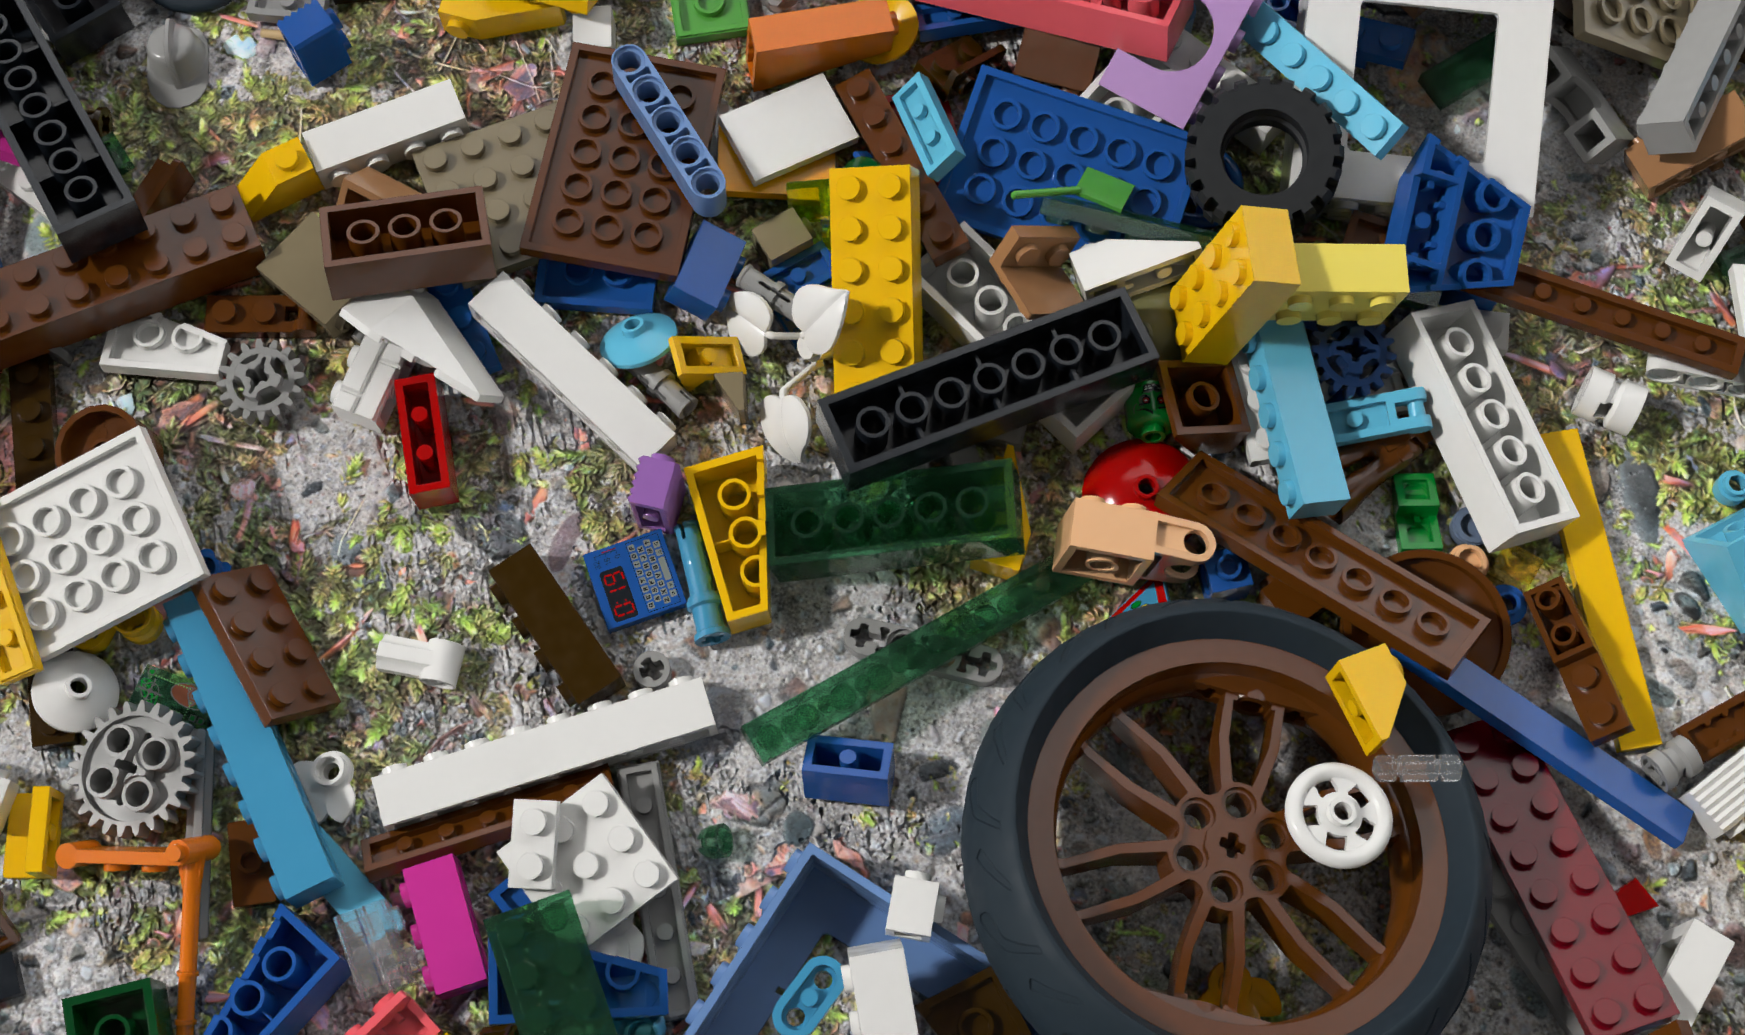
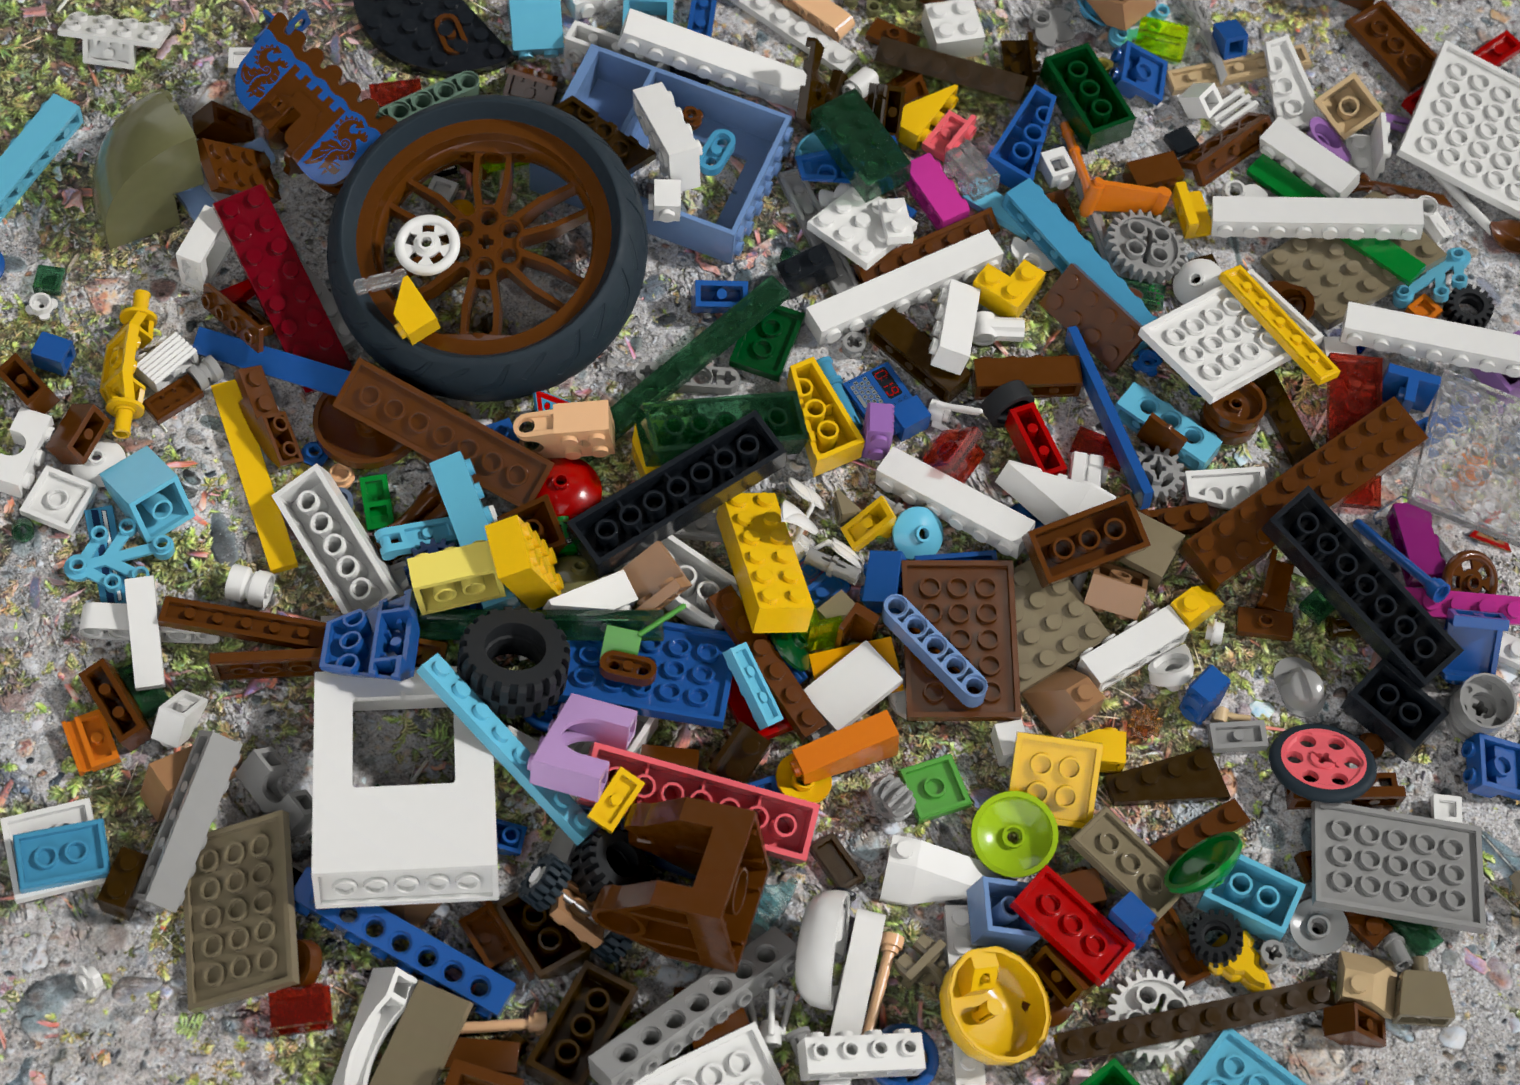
camera: 160 degrees right, 10 degrees down
(71, 906) = (1154, 171): none -> reddish brown brick
(185, 402) = (1140, 399): none -> medium azure brick
(198, 151) = (1264, 624): none -> reddish brown plate
(214, 936) = (1057, 168): none -> white brick
(233, 422) = (1159, 433): none -> reddish brown piece
(263, 140) = (1215, 632): none -> white plate
(302, 470) = (1110, 420): none -> blue tile
(329, 444) = (1097, 444): none -> clear red tile
(340, 93) = (1172, 668): none -> white piece
(377, 712) = (1009, 294): none -> yellow brick
(402, 568) = (1042, 375): none -> reddish brown brick
(406, 32) = (1137, 722): none -> clear orange gear
(447, 512) = (1001, 400): none -> black tyre
(490, 649) = (954, 326): none -> white brick
(502, 79) = (1064, 700): none -> medium nougat slope
(550, 532) = (942, 411): none -> white plant
(558, 449) = (956, 452): none -> clear red bracket
(602, 523) = (910, 418): none -> blue brick
(698, 797) = (807, 270): none -> black brick
(757, 204) = (859, 625): none -> reddish brown panel
(783, 671) = (768, 344): none -> dark green plate
(1102, 150) = (628, 668): none -> reddish brown plate
(1614, 841) = (239, 317): none -> reddish brown bracket
(1617, 269) = (265, 664): none -> reddish brown tile

